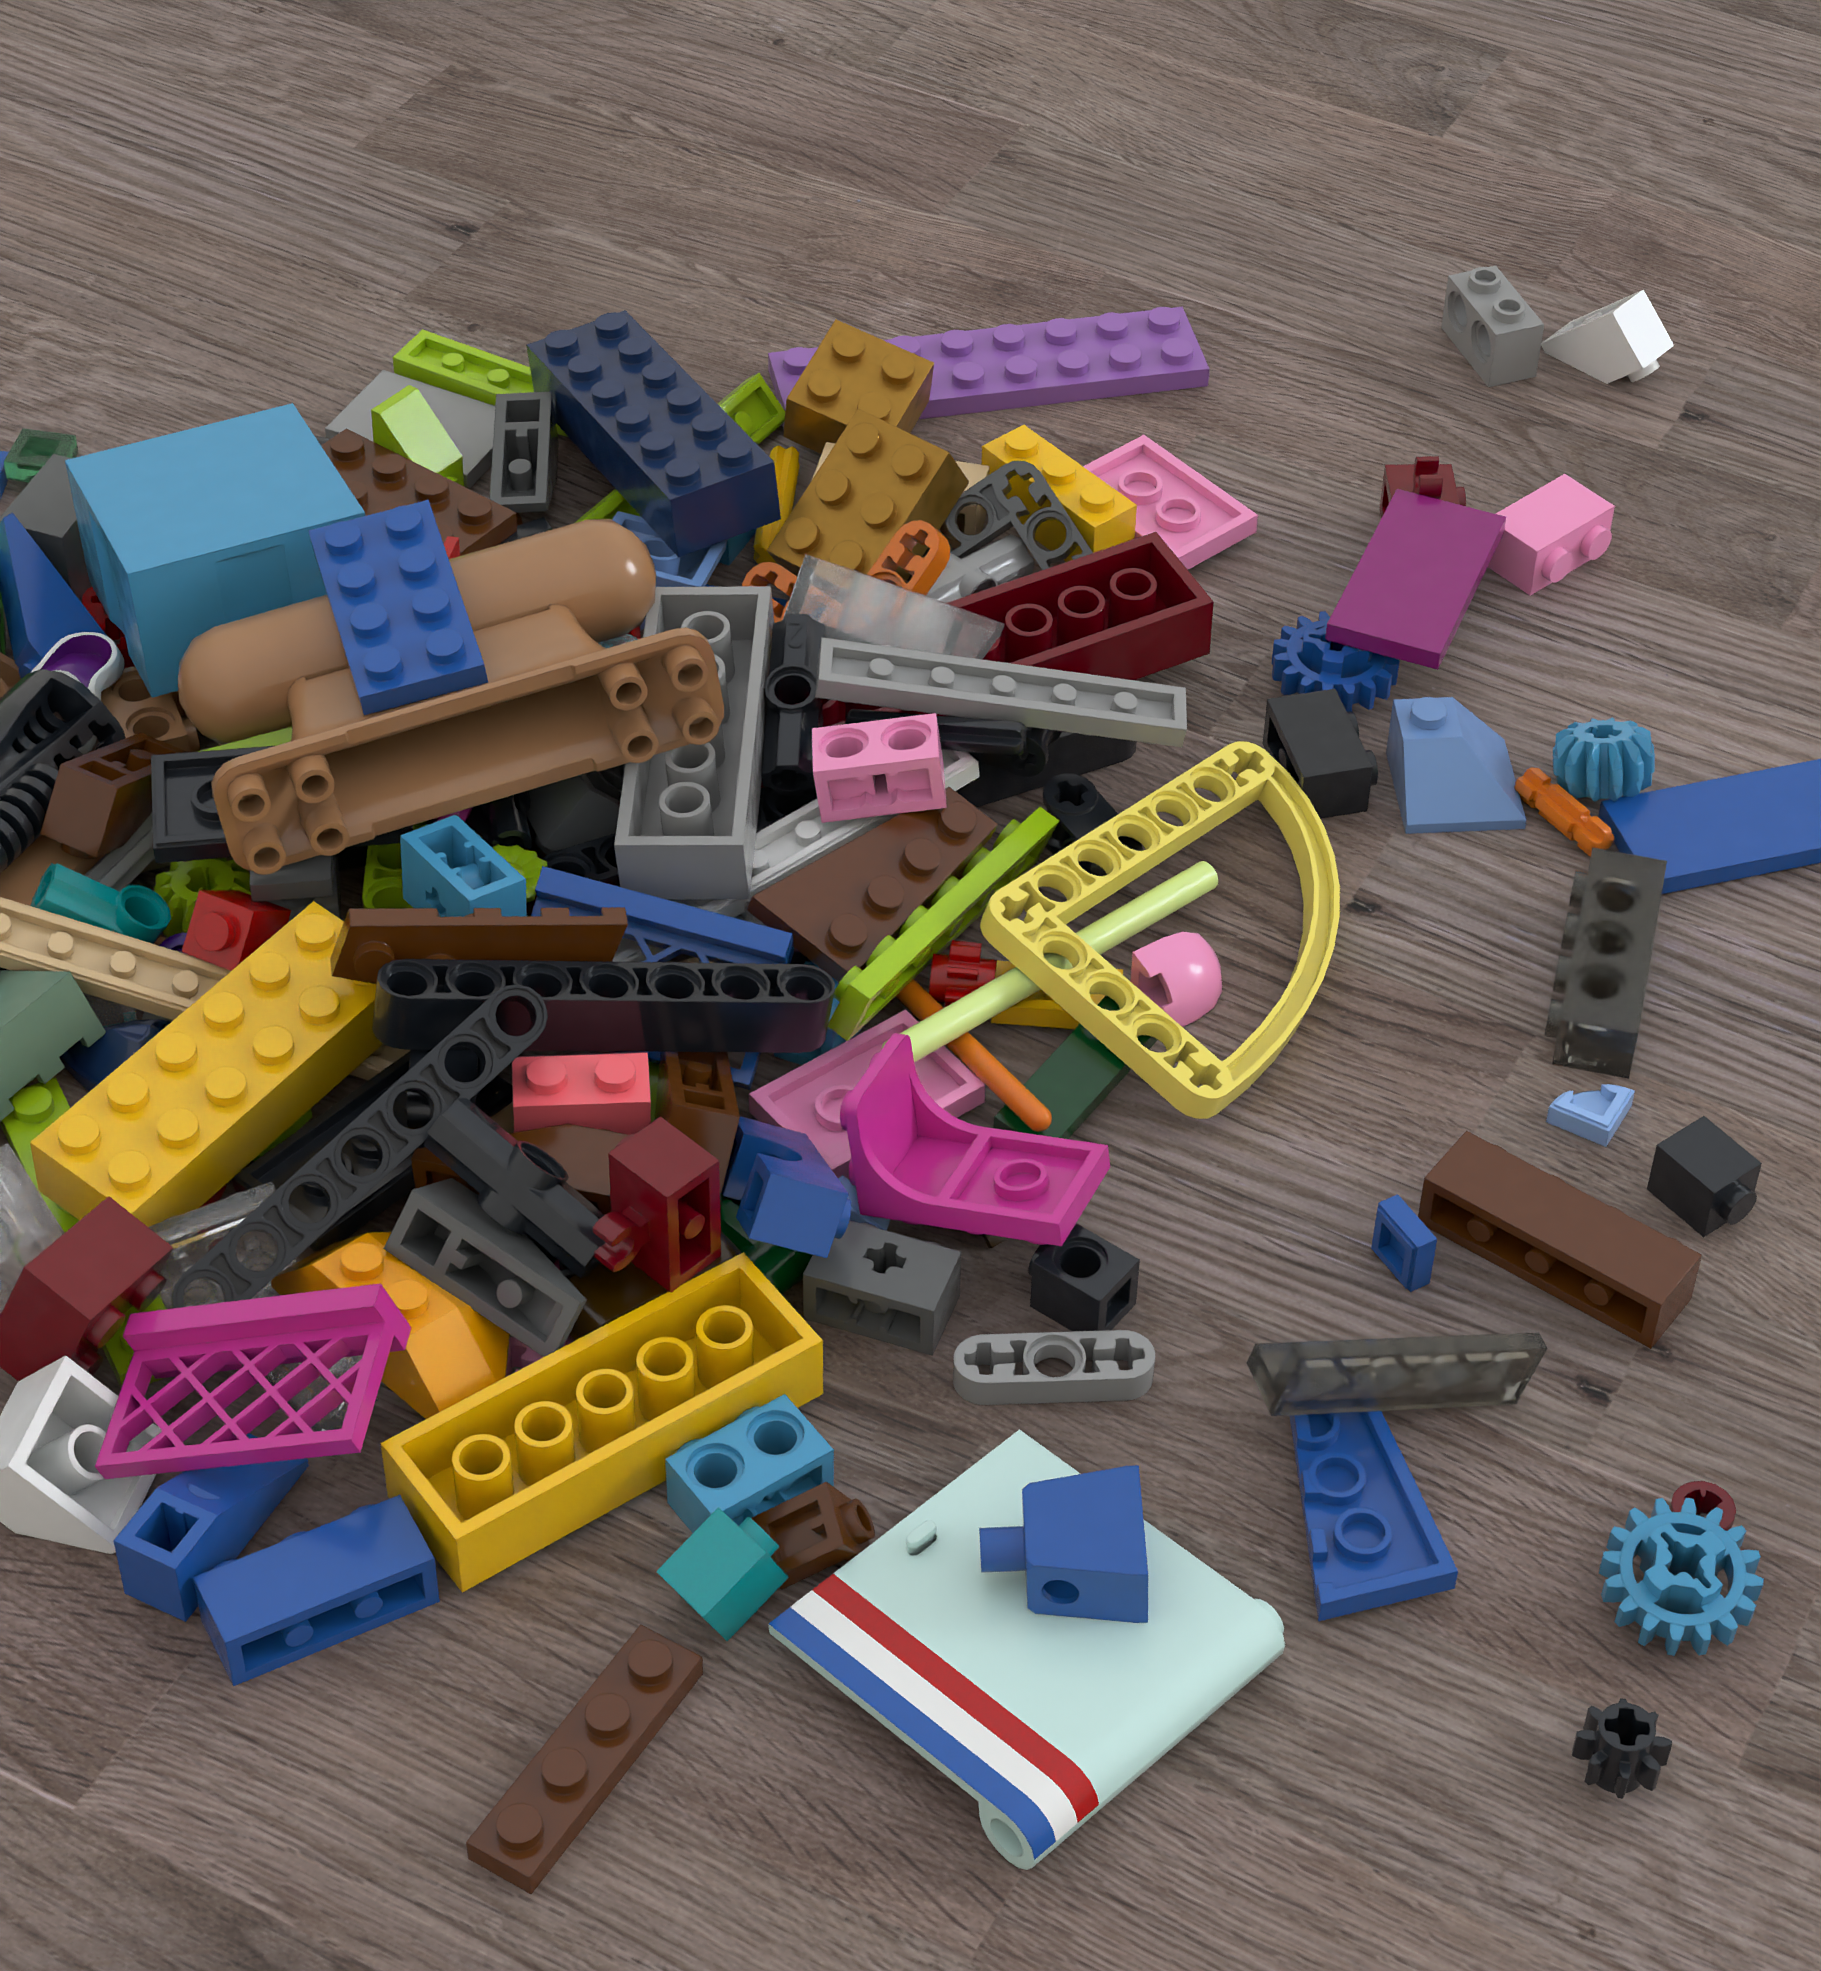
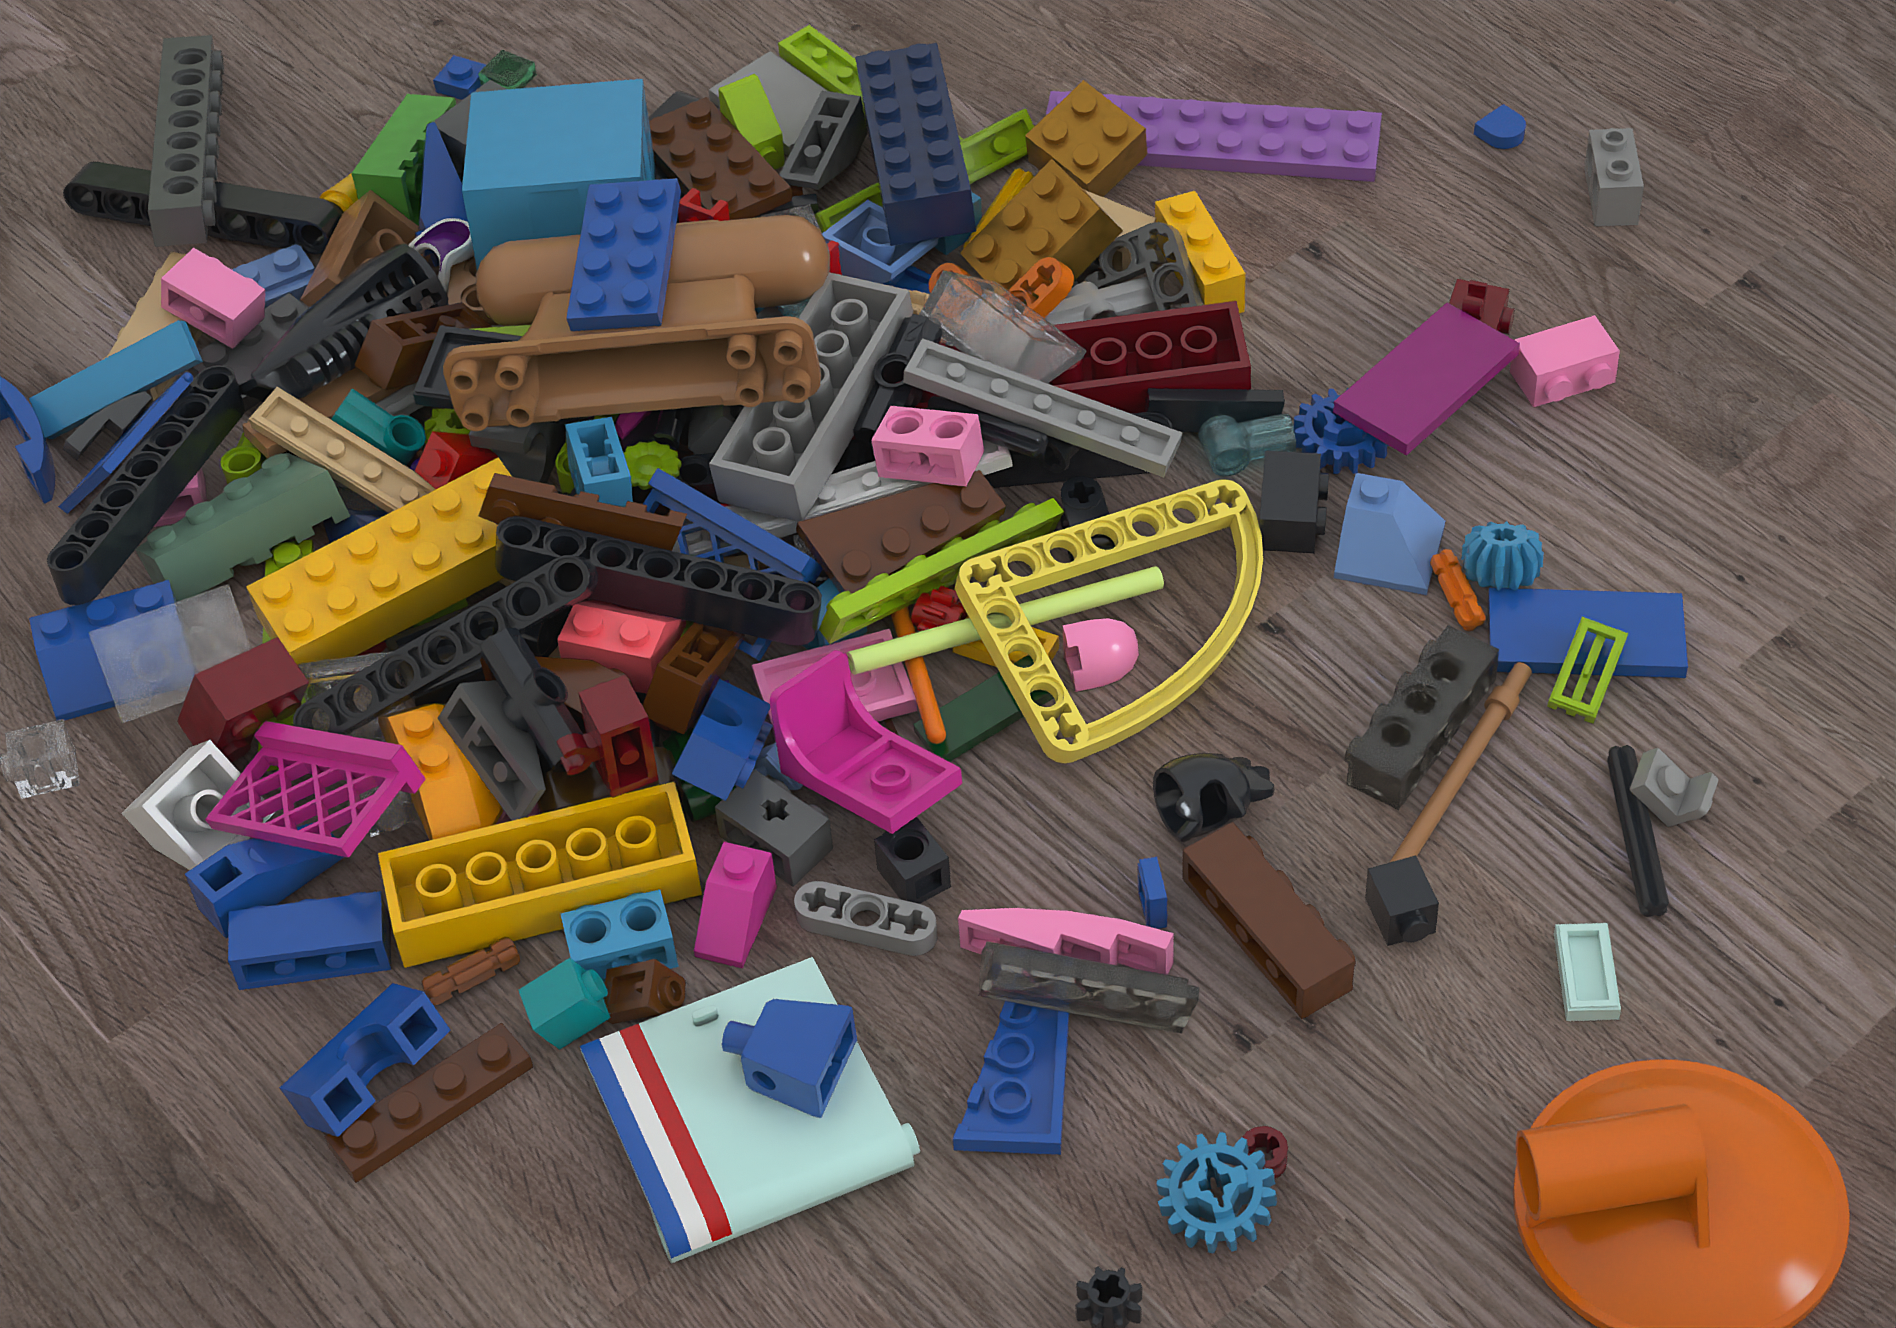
camera: 25 degrees right, 5 degrees up
(452, 1769) = (392, 1029): none -> blue arch
(559, 1571) = (471, 971): none -> dark orange axle
(881, 1392) = (734, 904): none -> dark pink slope
(1175, 501) = (1283, 275): bright pink plate -> none
(1196, 663) = (1193, 407): none -> black tile
(1223, 700) = (1234, 444): none -> clear light blue piece
(1327, 300) = (1501, 128): none -> blue tile
(1349, 1311) = (1069, 935): none -> bright pink slope
(1408, 1109) = (1207, 792): none -> black piece
(1592, 1113) = (1353, 830): light blue tile -> none
(1613, 340) = (1706, 209): white slope -> none
(1685, 933) = (1499, 707): none -> medium nougat bar
(1766, 907) = (1574, 705): none -> lime tile

